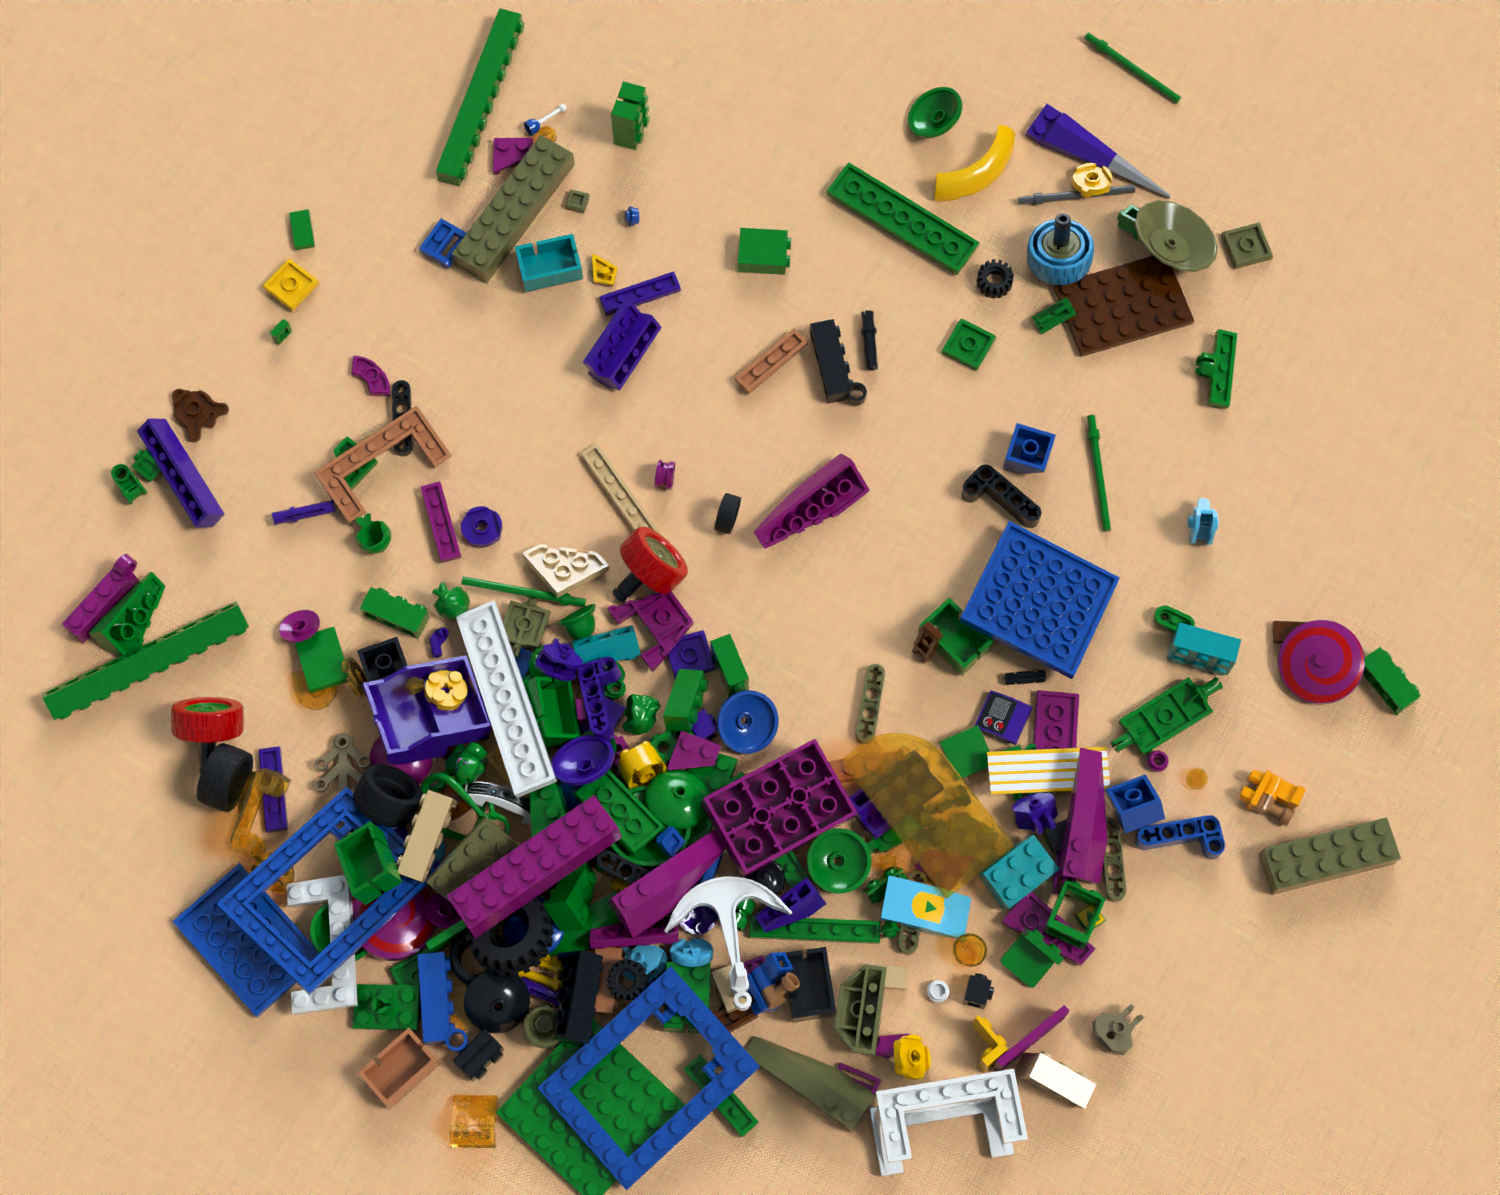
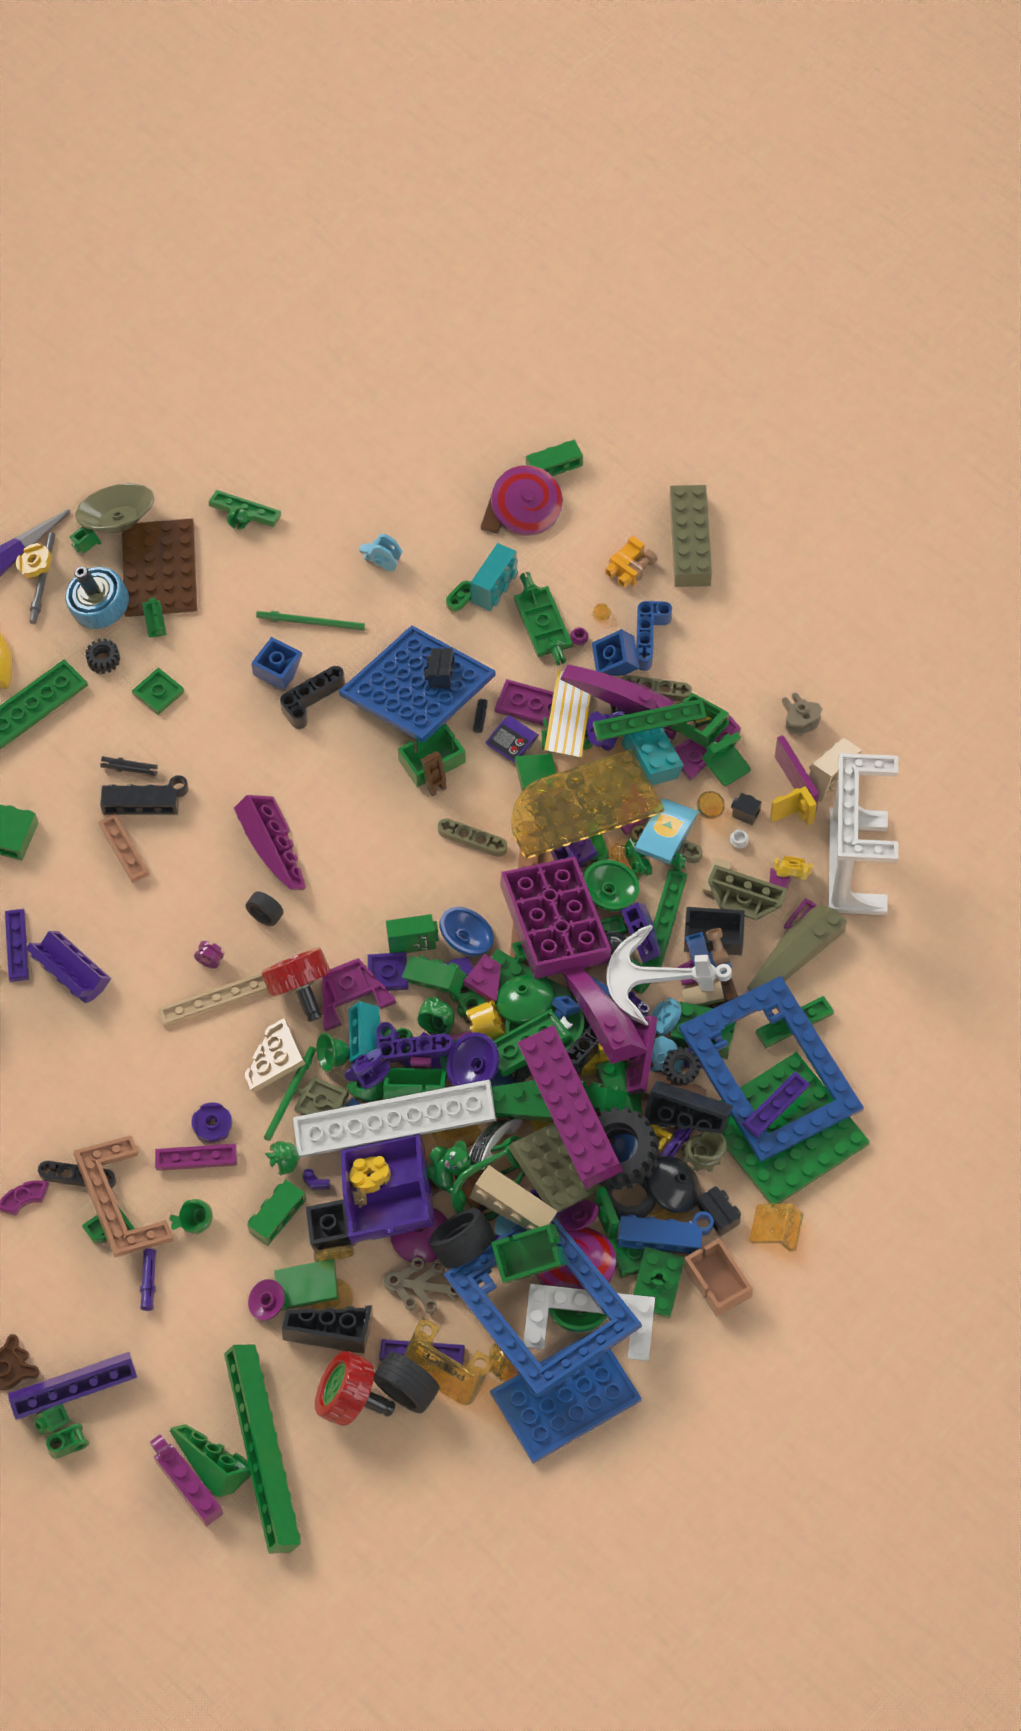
camera: 75 degrees left, 10 degrees down
(279, 701) = (329, 1328): none -> black wedge
(601, 1090) = (776, 1105): none -> dark purple tile
(1048, 856) = (649, 720): none -> green plate
(1059, 616) = (440, 668): none -> black brick
(1247, 245) = (135, 465): olive tile -> none

